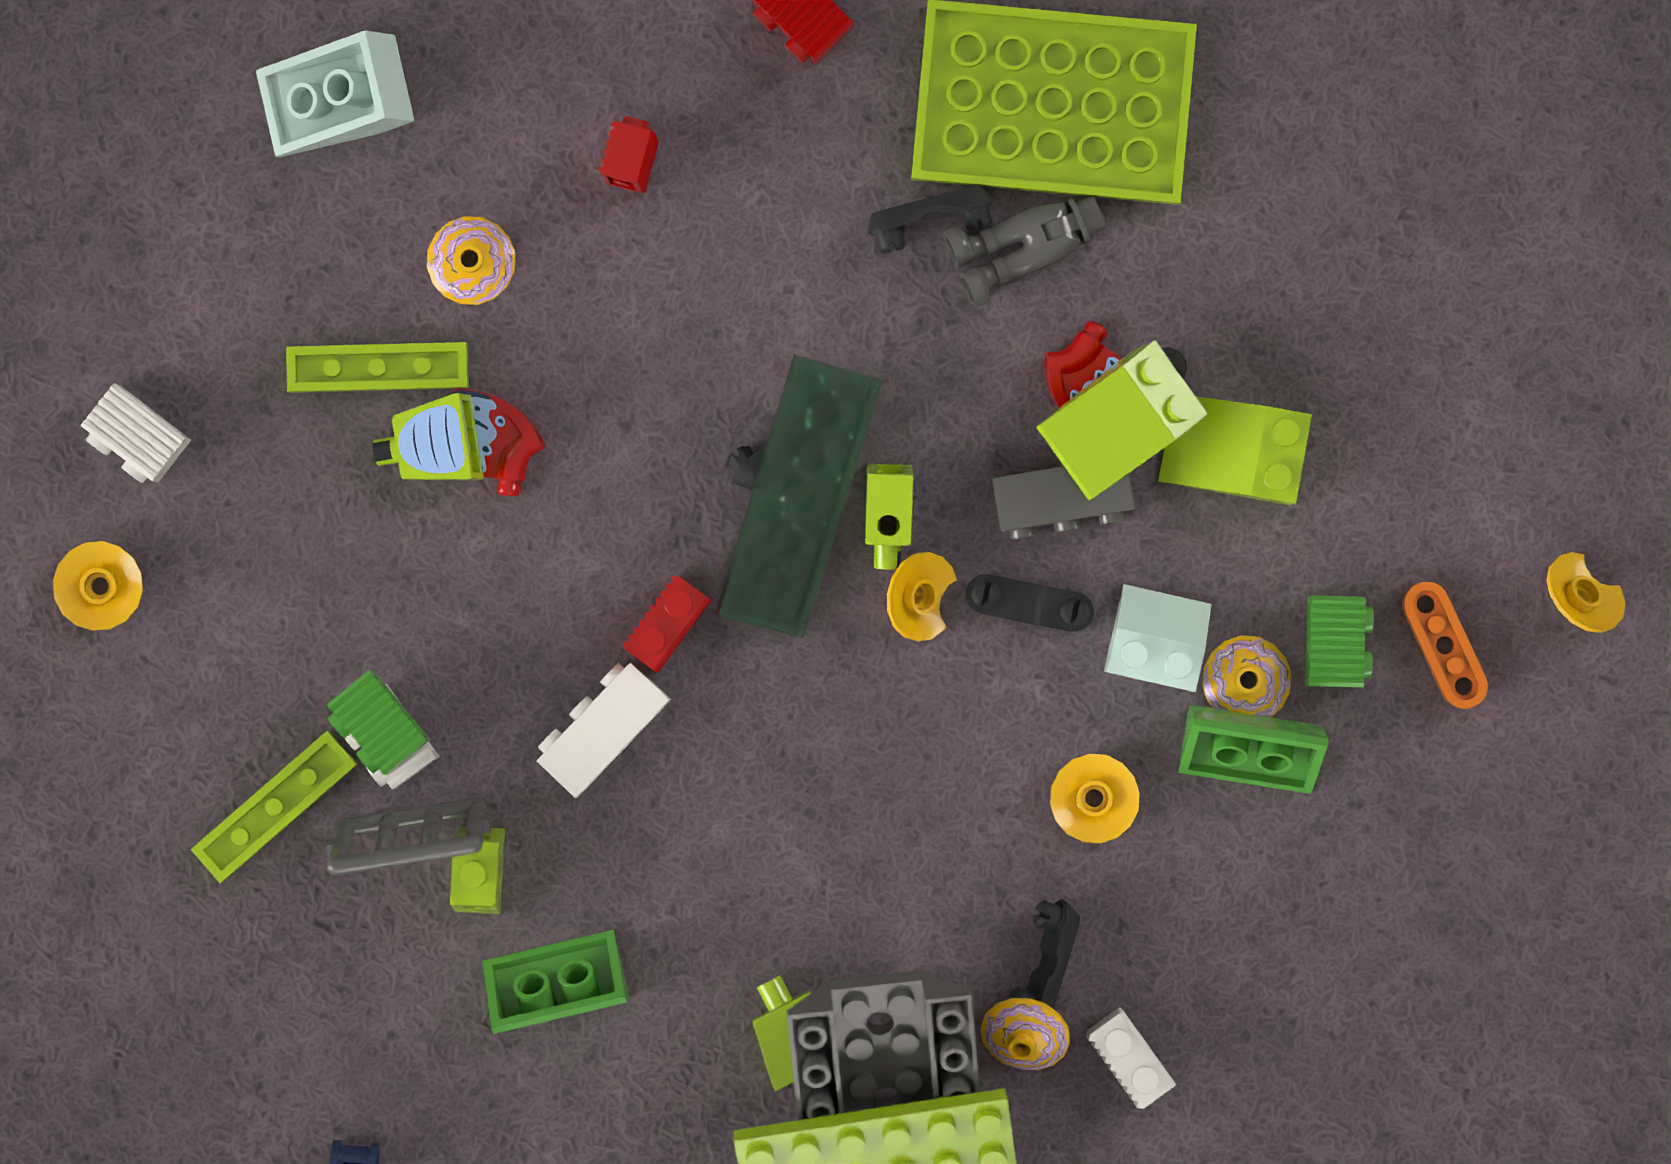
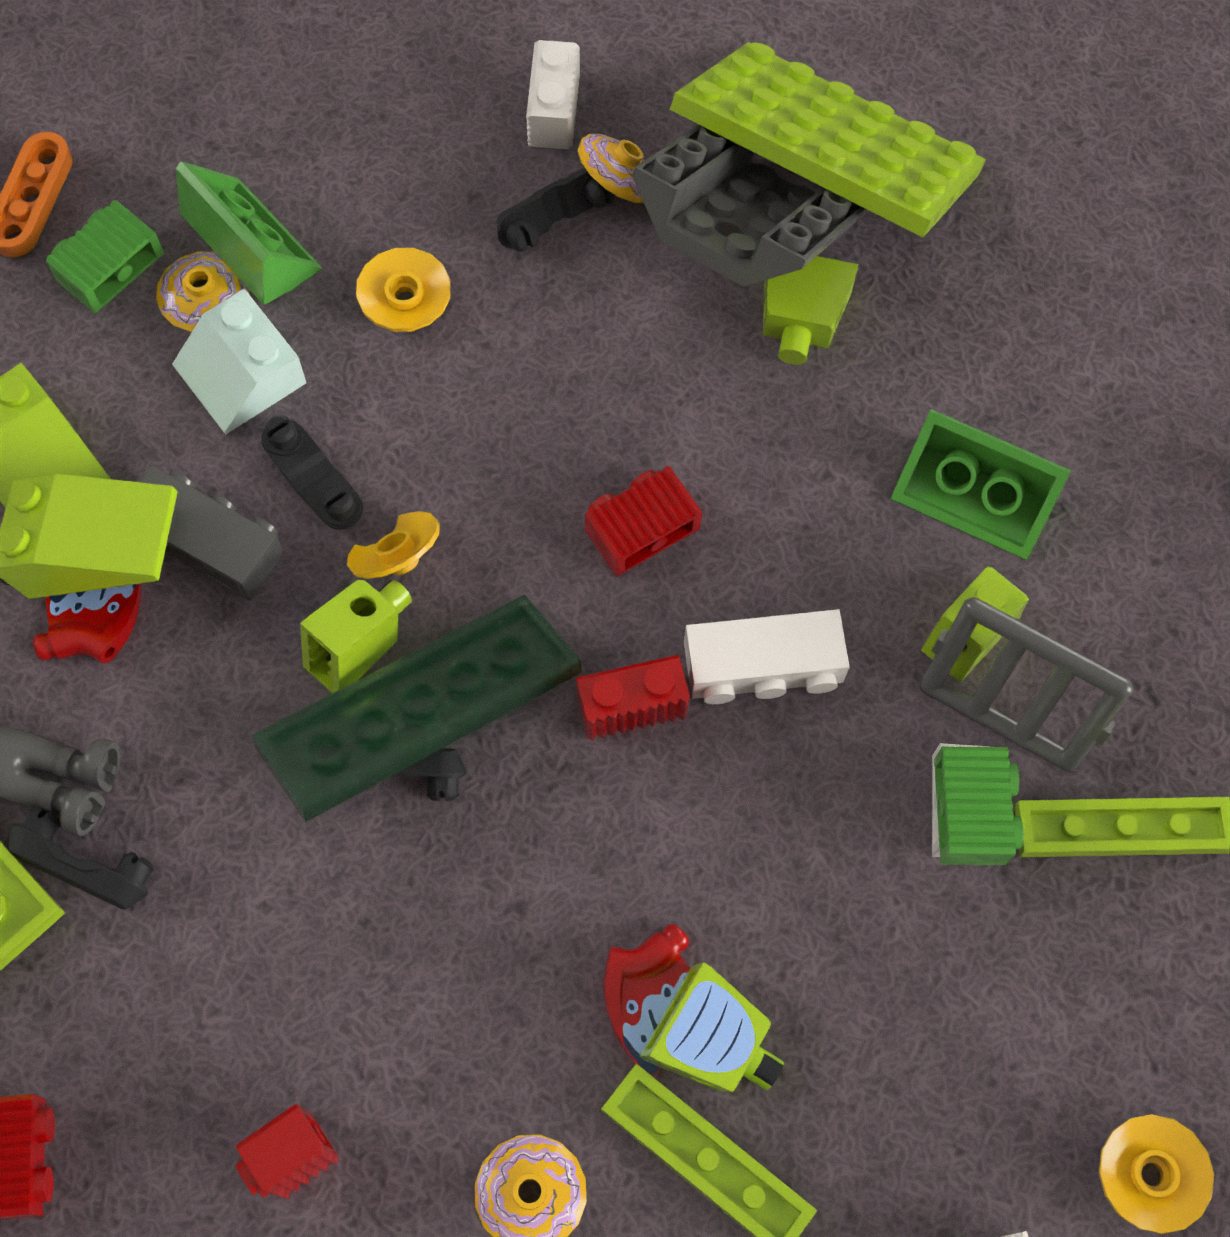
camera: 145 degrees left, 20 degrees down
(769, 759) = (642, 519): none -> red brick

